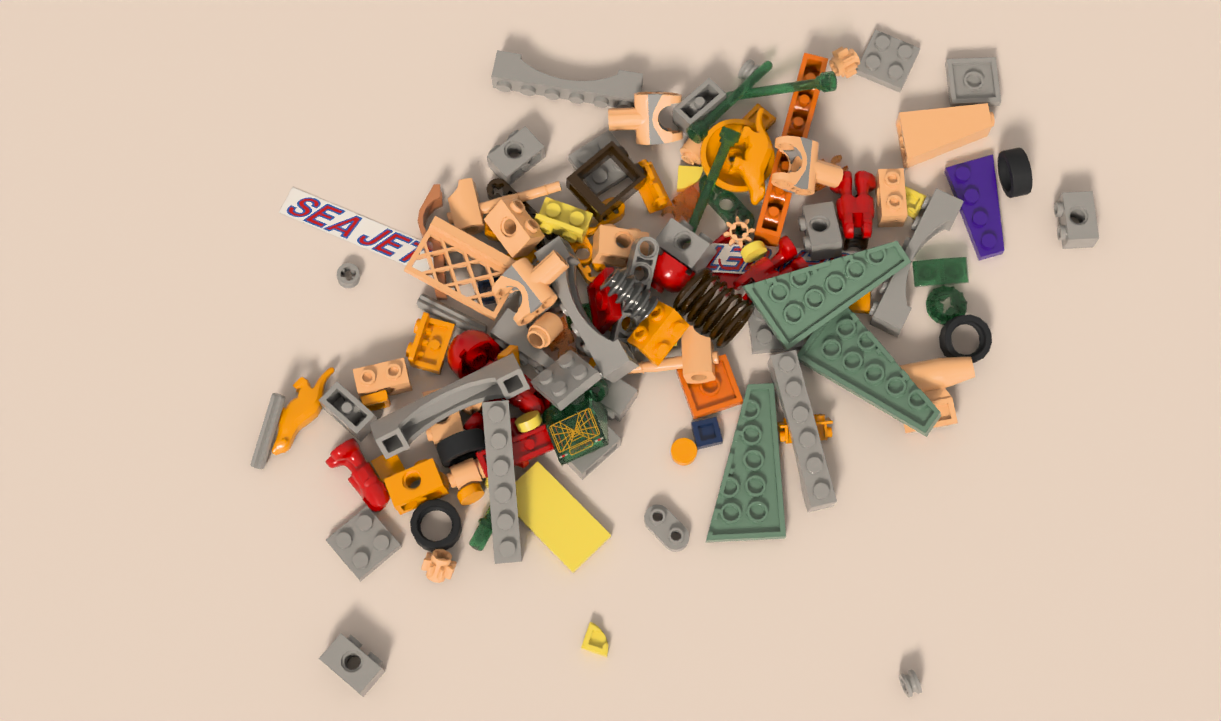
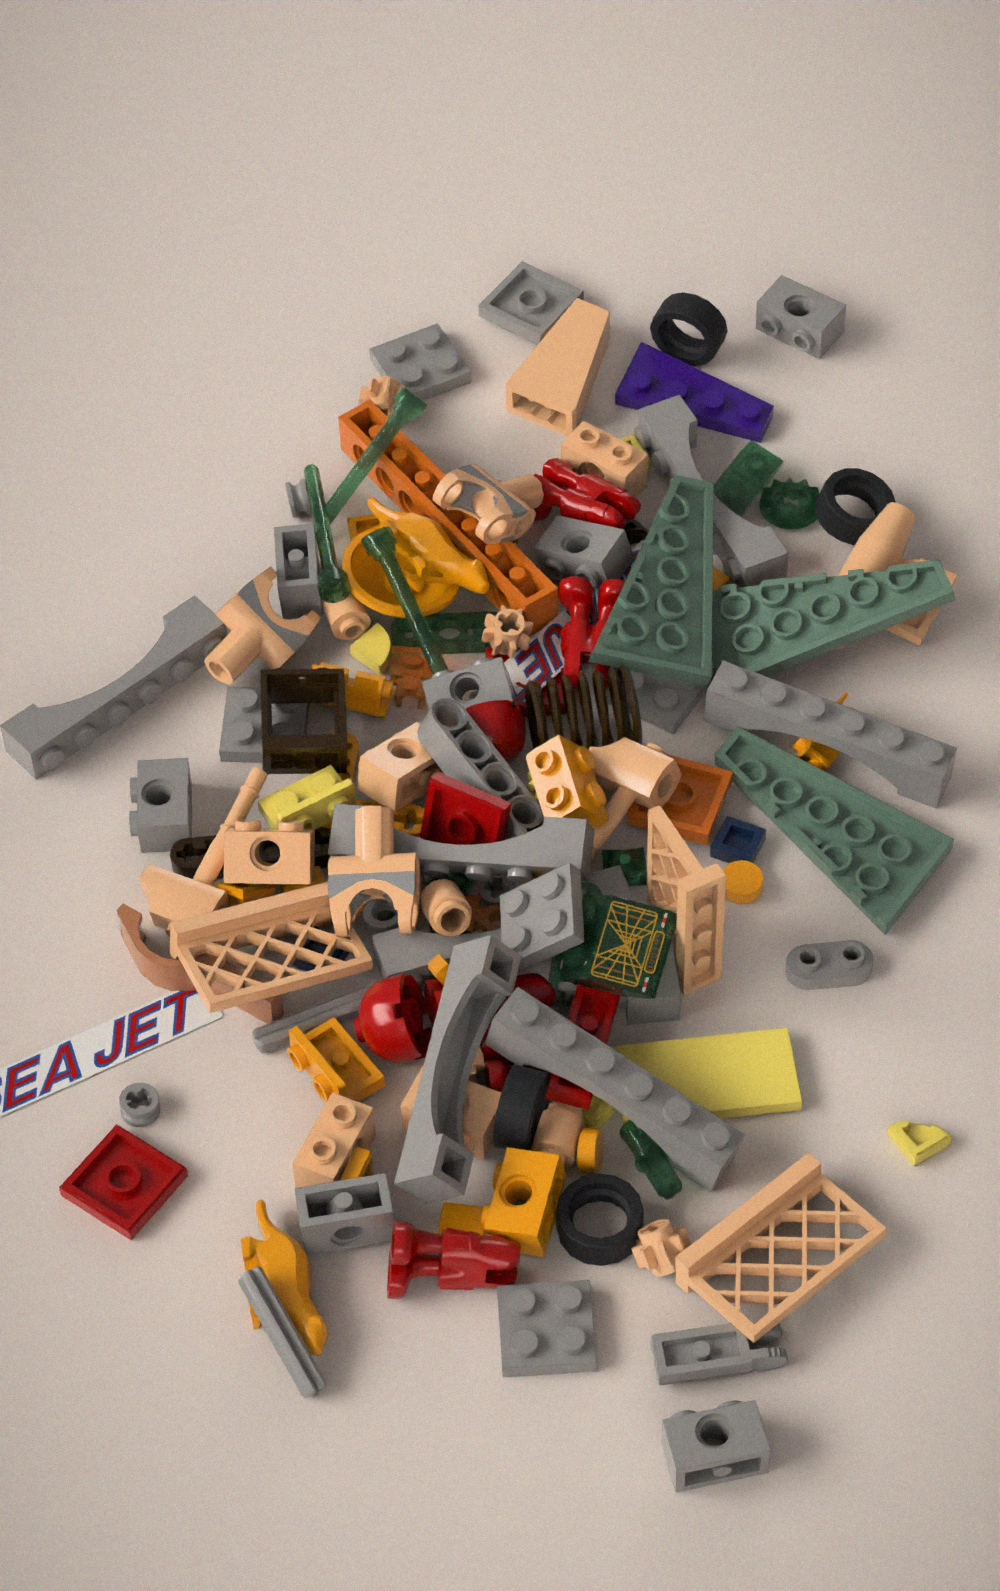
camera: 50 degrees left, 20 degrees down
(303, 301) = (123, 1182): none -> red tile
(402, 627) = (712, 1353): none -> light grey hinge
(483, 598) = (747, 1229): none -> light nougat fence
(528, 421) = (559, 999): light yellow tile -> none
(613, 451) = (693, 893): none -> light nougat fence
(630, 293) = (496, 764): dark grey piece -> none
(651, 390) = (631, 862): none -> clear green slope
(753, 251) = (545, 633): light yellow tile -> none

